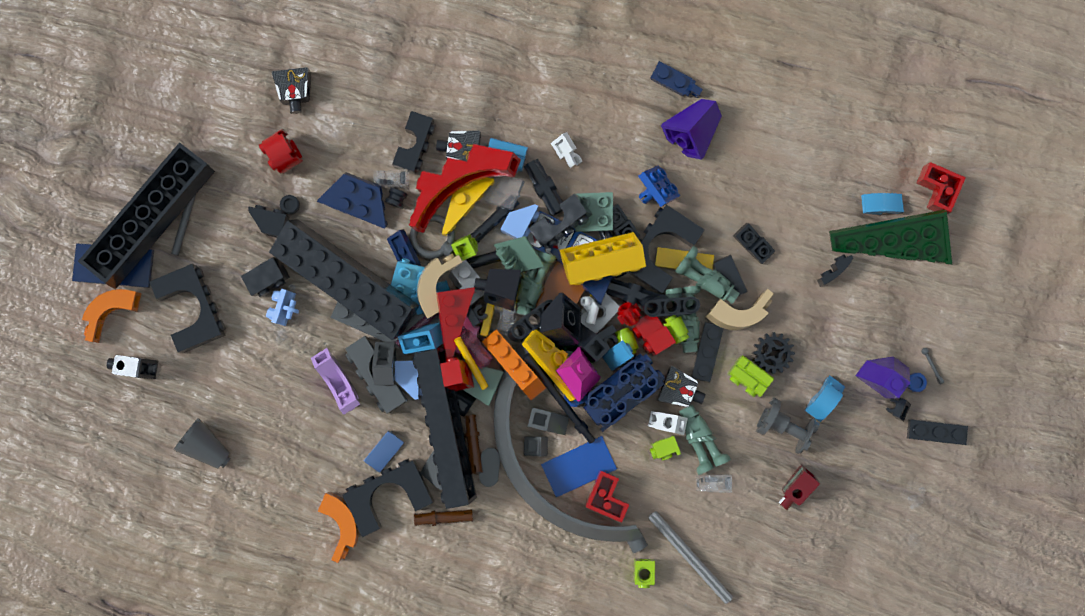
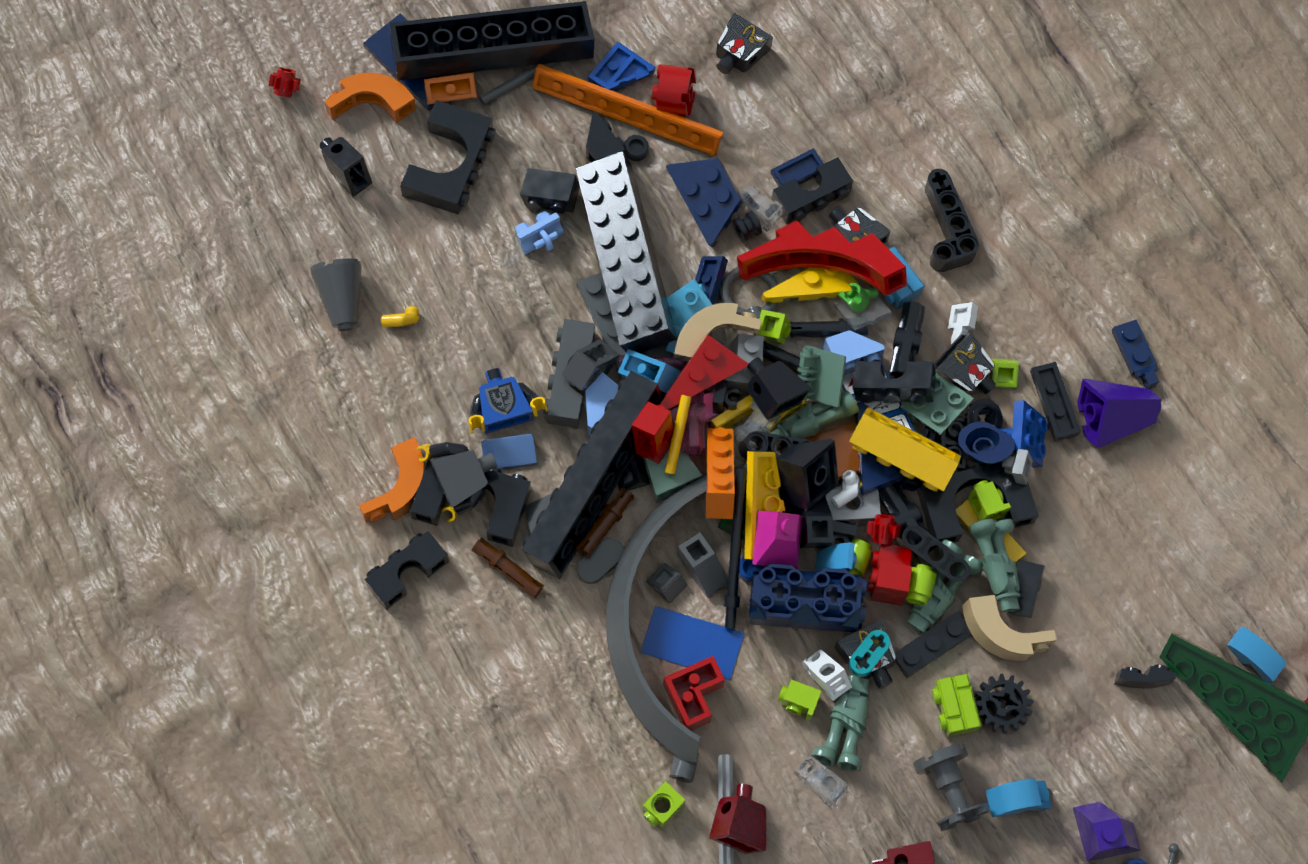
camera: 40 degrees right, 15 degrees down
(49, 347) = (284, 82): none -> red gear
(149, 265) = (450, 87): none -> orange slope
(236, 164) = (620, 69): none -> blue wing
(252, 429) = (397, 320): none -> yellow arm
(263, 187) = (627, 110): none -> orange tile
(336, 380) = (527, 341): lavender arch -> none
(355, 428) = (503, 404): none -> torso
(370, 495) = (459, 474): none -> dark grey torso
(385, 586) = (422, 553): none -> black arch
(393, 136) = (799, 168): none -> dark blue tile
(496, 188) = (858, 297): none -> bright green piece
(503, 93) = (946, 218): none -> black beam
(590, 175) = (966, 364): none -> torso
(613, 157) = (1005, 373): none -> lime slope
(630, 191) = (983, 407): none -> black gear
(642, 214) = (985, 443): none -> dark blue piece
(655, 151) = (1055, 401): none -> black plate
(670, 246) = (988, 501): none -> lime brick
(672, 212) = (1019, 466): none -> light grey tile
(687, 392) = (864, 649): none -> teal beam
(693, 546) = (740, 822): none -> dark red torso
(754, 243) = (1079, 578): black slope -> none

